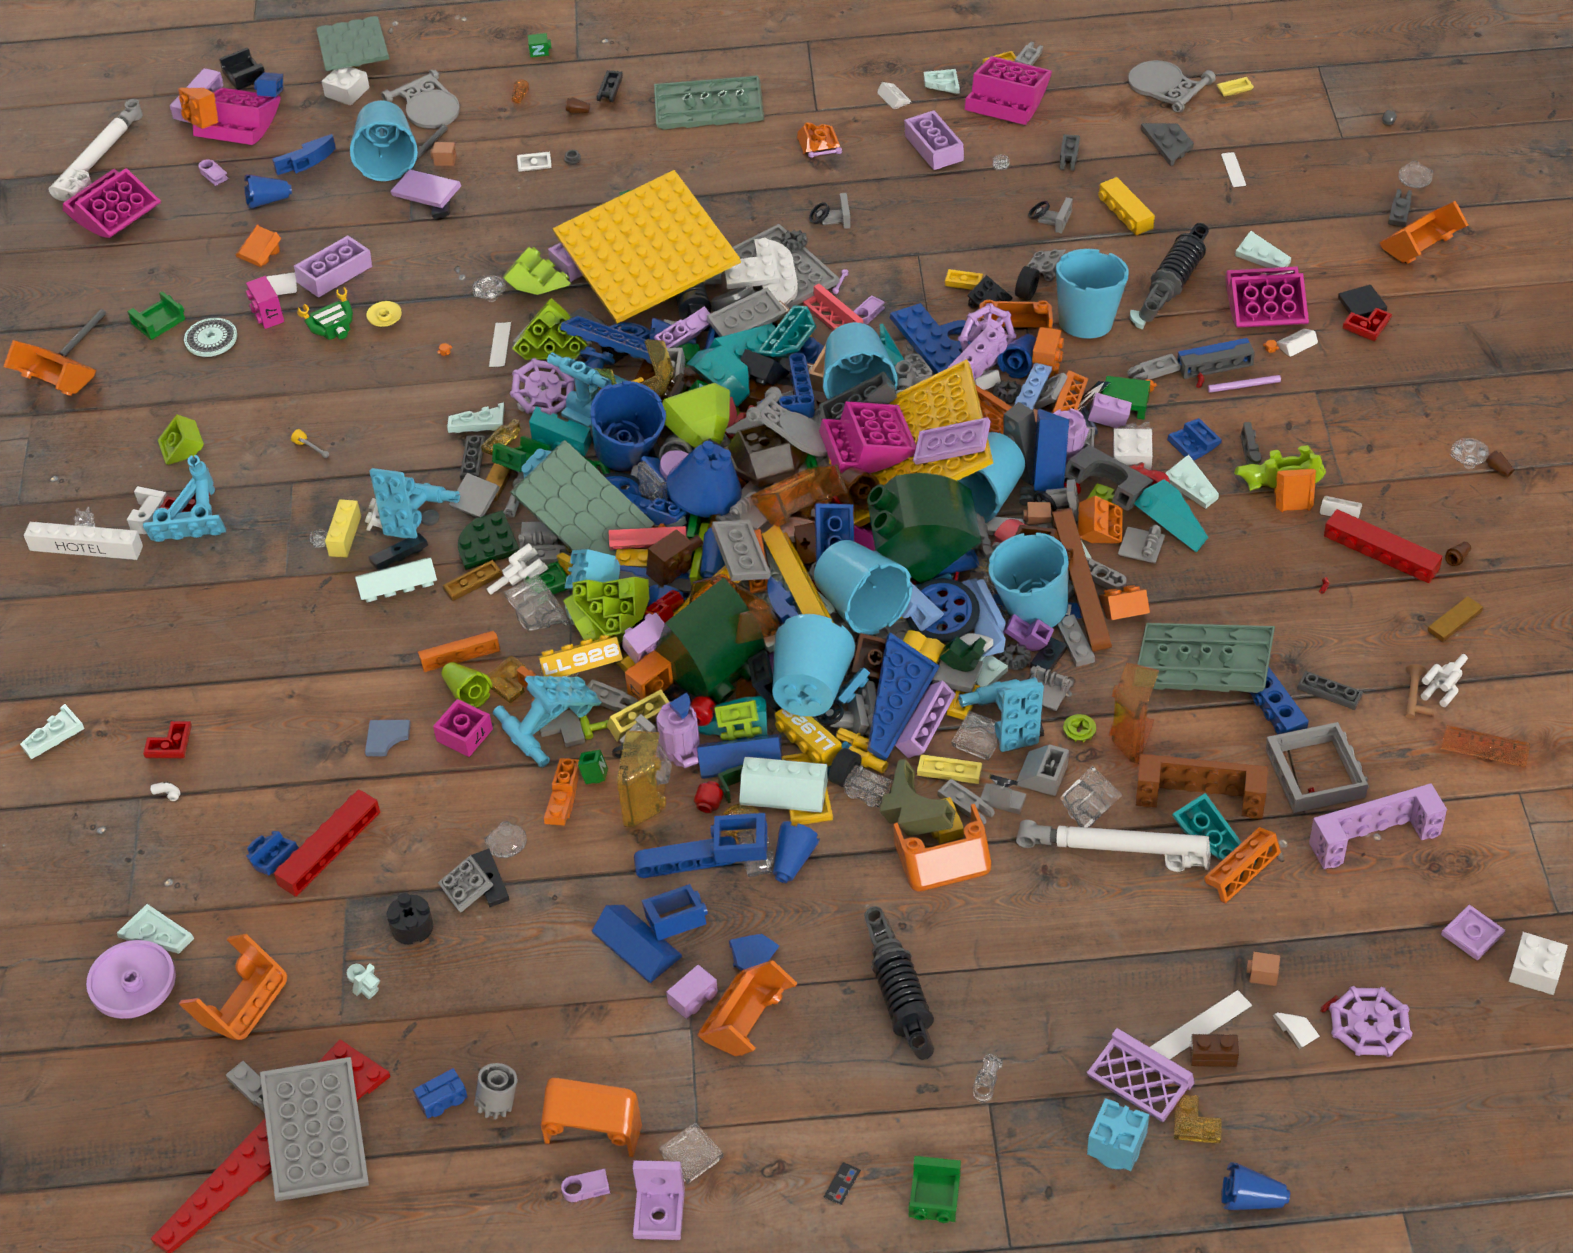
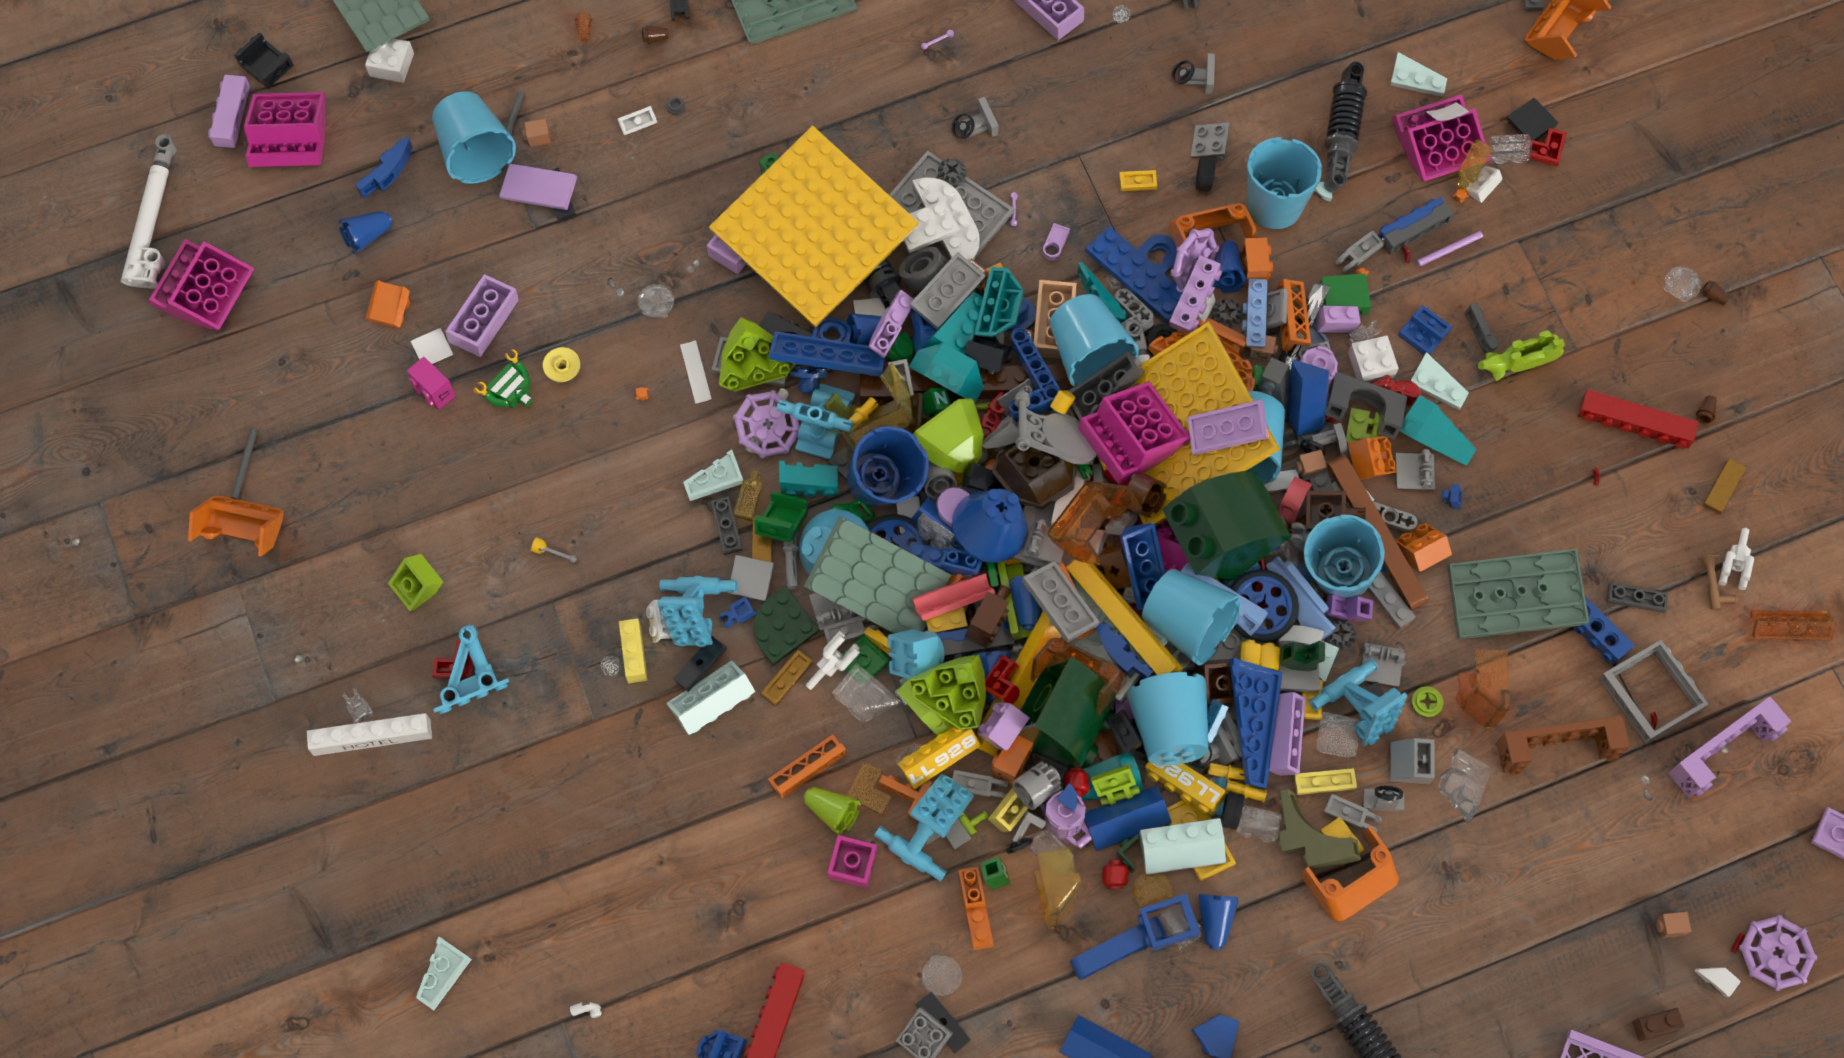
camera: 20 degrees left, 20 degrees up
(150, 502) = (422, 678): white piece -> none
(157, 317) = (318, 424): green panel -> none
(171, 746) = (571, 958): red brick -> none
(198, 106) = (248, 138): orange slope -> none
(210, 337) = (375, 429): piece -> none
(214, 174) = (295, 213): lavender piece -> none
(269, 84) = (306, 80): blue brick -> none
(384, 734) = (774, 885): sand blue tile -> none
(427, 106) = (494, 69): light grey piece -> none
(430, 517) = (712, 610): dark grey piece -> none
(452, 521) = (740, 611): none -> blue plate
(534, 274) = (699, 277): lime brick -> none
(657, 692) = (1037, 785): none -> light grey gear
(679, 921) = (1145, 1027): blue window -> none
(812, 407) = (1063, 401): none -> yellow brick
(817, 138) = (924, 23): orange slope -> none
(831, 304) = (1024, 248): coral fence -> none
(987, 290) = (1171, 197): black hinge -> none
(1049, 655) = (1371, 629): black plate -> none
(1126, 206) = (1267, 47): yellow brick -> none
(1171, 569) = (1453, 496): none -> blue tile
(1180, 850) = (1561, 823): white piece -> none
(1202, 1024) = (1633, 999): white sticker -> none
(1204, 819) = (1582, 789): teal wedge -> none
(1243, 859) = (1621, 816): orange fence -> none
(1290, 319) = (1473, 163): none -> clear yellow hinge
(1295, 489) = (1541, 375): orange slope -> none
(1330, 504) = (1584, 379): white slope -> none
(1331, 314) = (1510, 148): none -> clear brick

